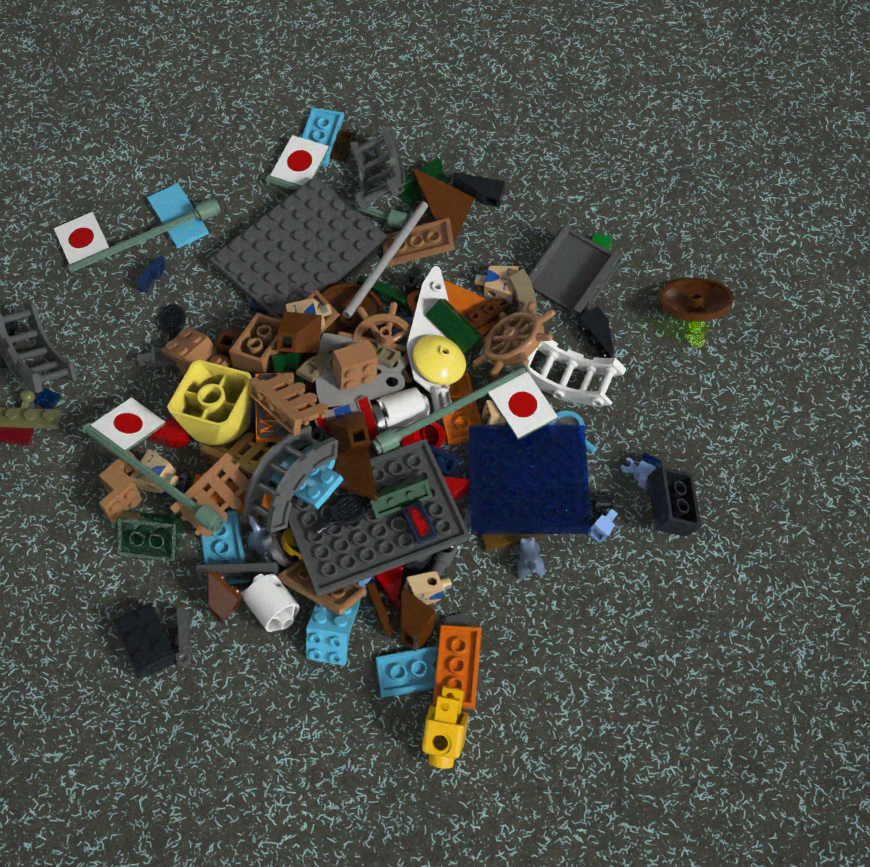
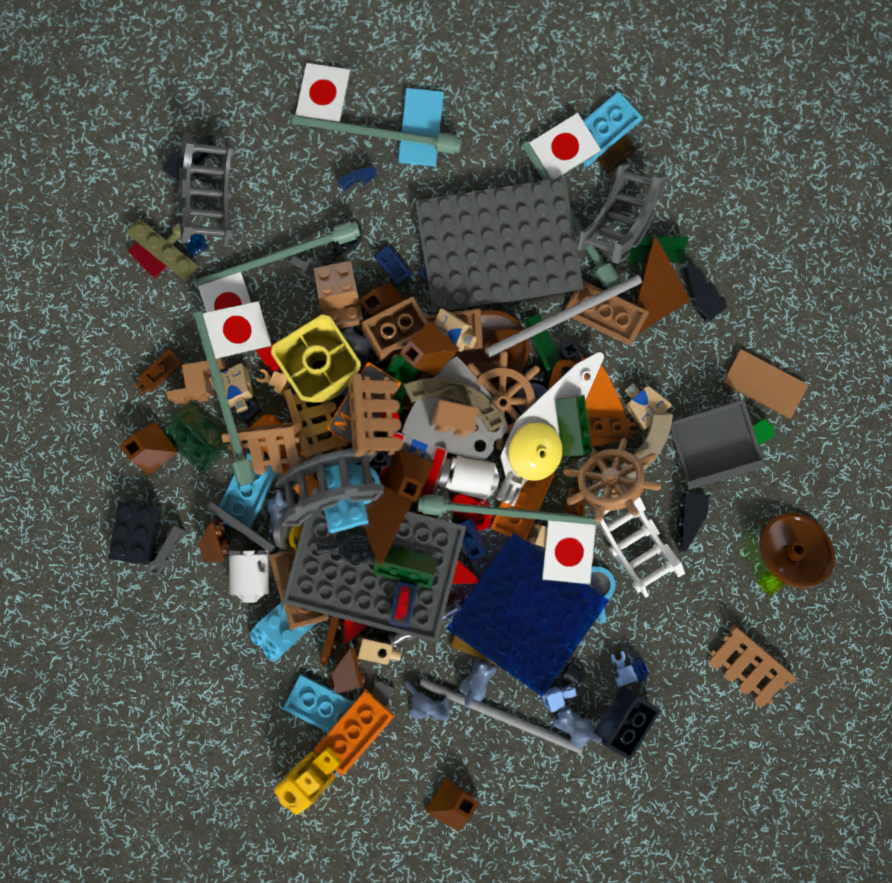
camera: 30 degrees right, 25 degrees up
(80, 508) = (158, 372): none -> reddish brown hinge
(98, 404) = (228, 287): none -> flag
(112, 567) = (149, 448): none -> reddish brown slope
(190, 450) = (277, 381): none -> light nougat piece
(225, 314) = (393, 265): none -> dark blue plate
(502, 606) = (423, 706): none -> sand blue animal
(570, 573) = (500, 715): none -> light grey piece
(580, 214) = (765, 384): none -> medium nougat tile
(588, 667) = (453, 805): none -> reddish brown slope
(640, 535) = (579, 729): none -> sand blue animal
(744, 390) = (760, 670): none -> medium nougat fence

